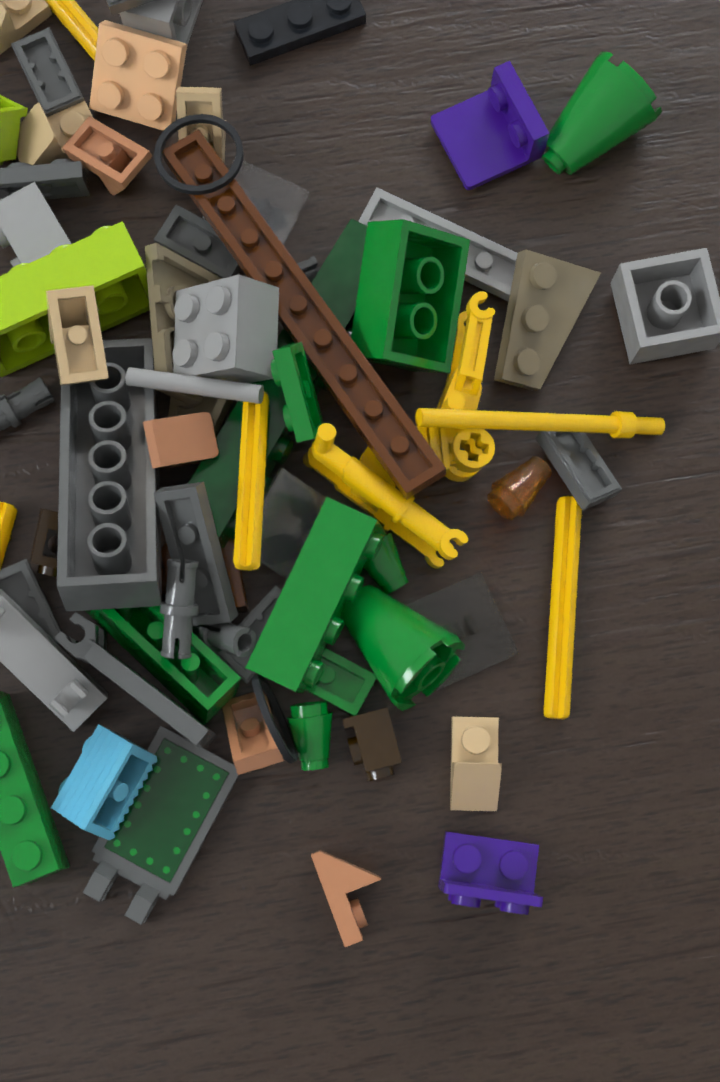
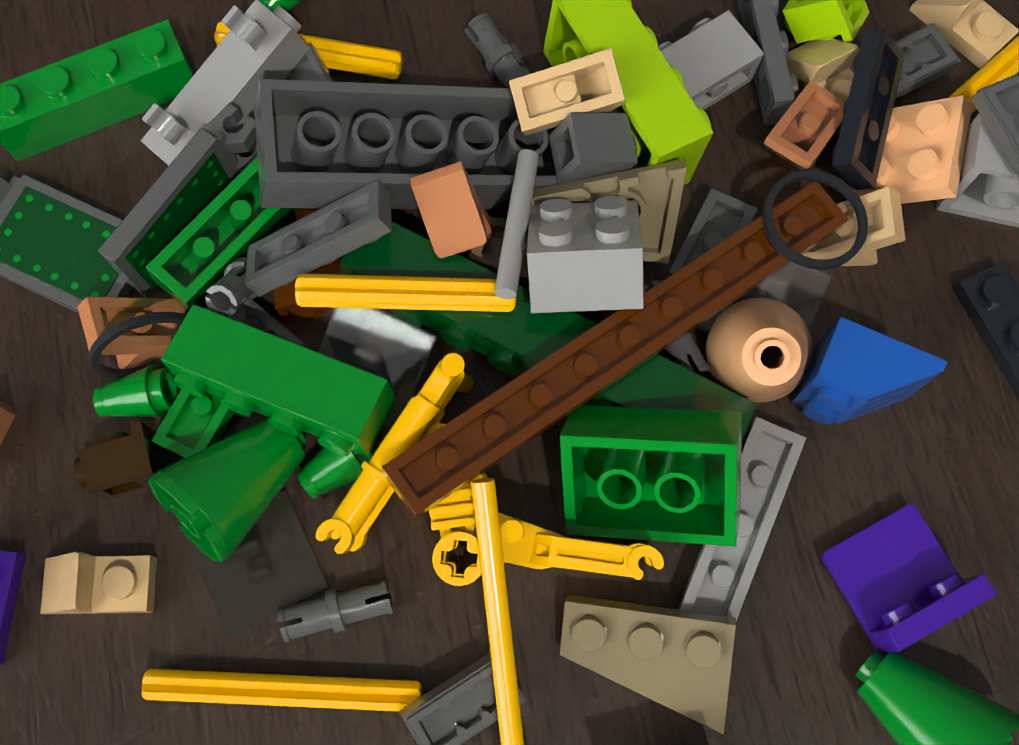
camera: 90 degrees right, 5 degrees down
(97, 103) = (868, 109): none -> black plate
(103, 782) = (86, 176): medium azure brick -> none
(125, 323) = (592, 145): none -> dark grey brick
(179, 608) = (253, 222): dark grey pin -> none
(302, 407) = (514, 338): green plate -> none
(307, 210) = (742, 335): none -> light nougat cone
(329, 140) = (860, 373): none -> blue slope
(501, 563) = (335, 610): none -> dark grey pin
(518, 489) = (430, 631): clear orange cone -> none

